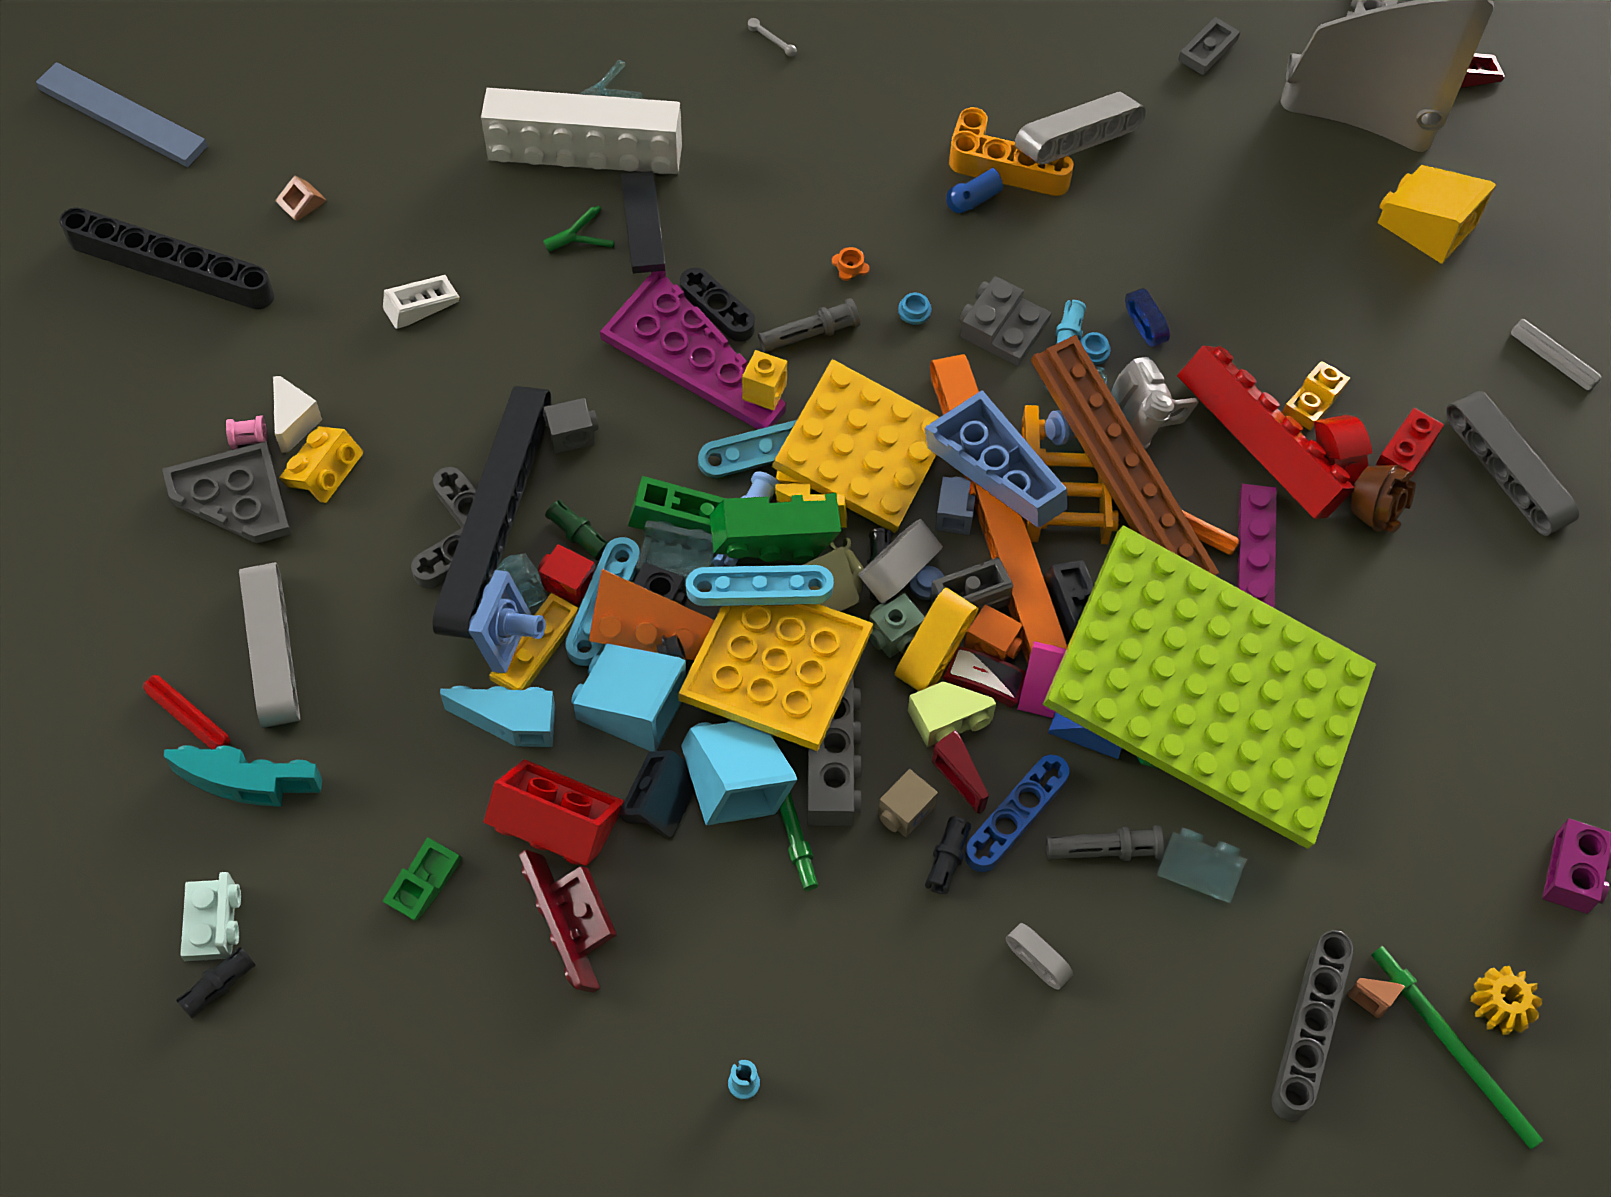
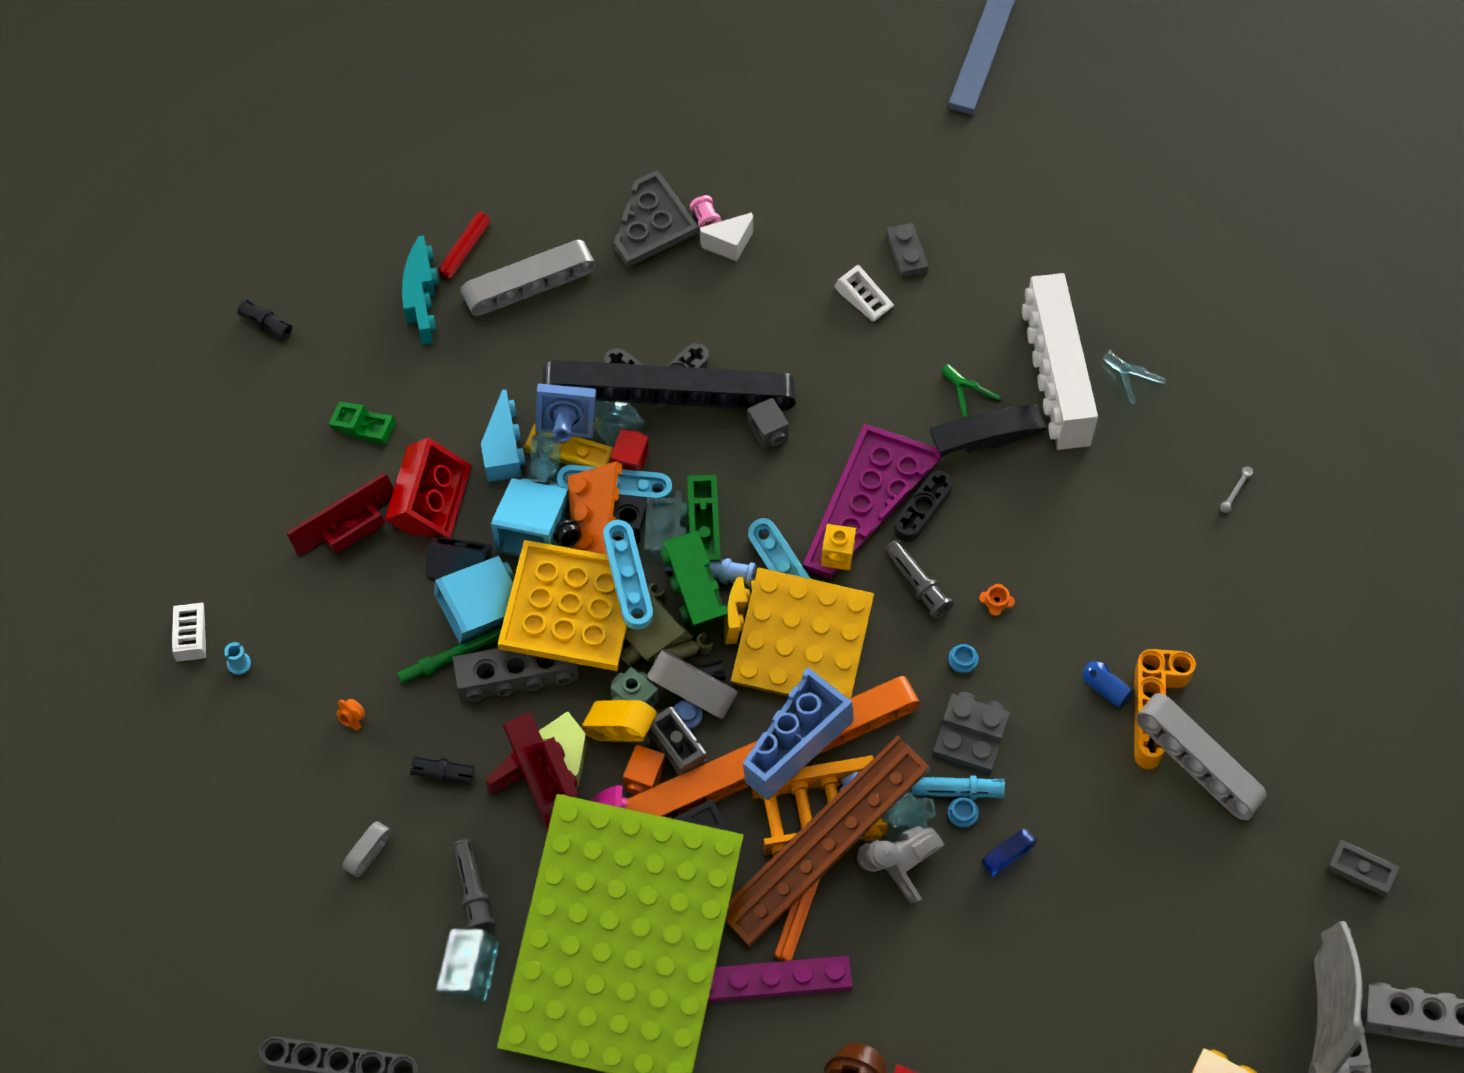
camera: 80 degrees right, 0 degrees up
(167, 258) = (849, 119): black beam -> none
(209, 919) = (310, 303): light aqua bracket -> none
(299, 198) = (940, 189): nougat slope -> none
(322, 462) = (691, 269): yellow bracket -> none
(373, 247) = (907, 250): none -> dark grey plate
(555, 661) = (545, 458): none -> clear light blue hips
(577, 529) = (675, 451): dark green pin -> none
(694, 1158) = (194, 650): none -> white slope
(851, 949) = (350, 713): none -> orange plate
(907, 803) = (479, 731): dark tan brick -> none
(955, 506) = (759, 718): sand blue brick -> none
(985, 674) = (608, 766): slope -> none
(988, 727) = (541, 764): none -> dark red bracket
(1019, 814) = (492, 814): blue beam -> none
(1266, 432) = (903, 964): red brick -> none
(1316, 395) = (966, 1014): yellow slope -> none
(1345, 443) = (906, 1035): red brick -> none

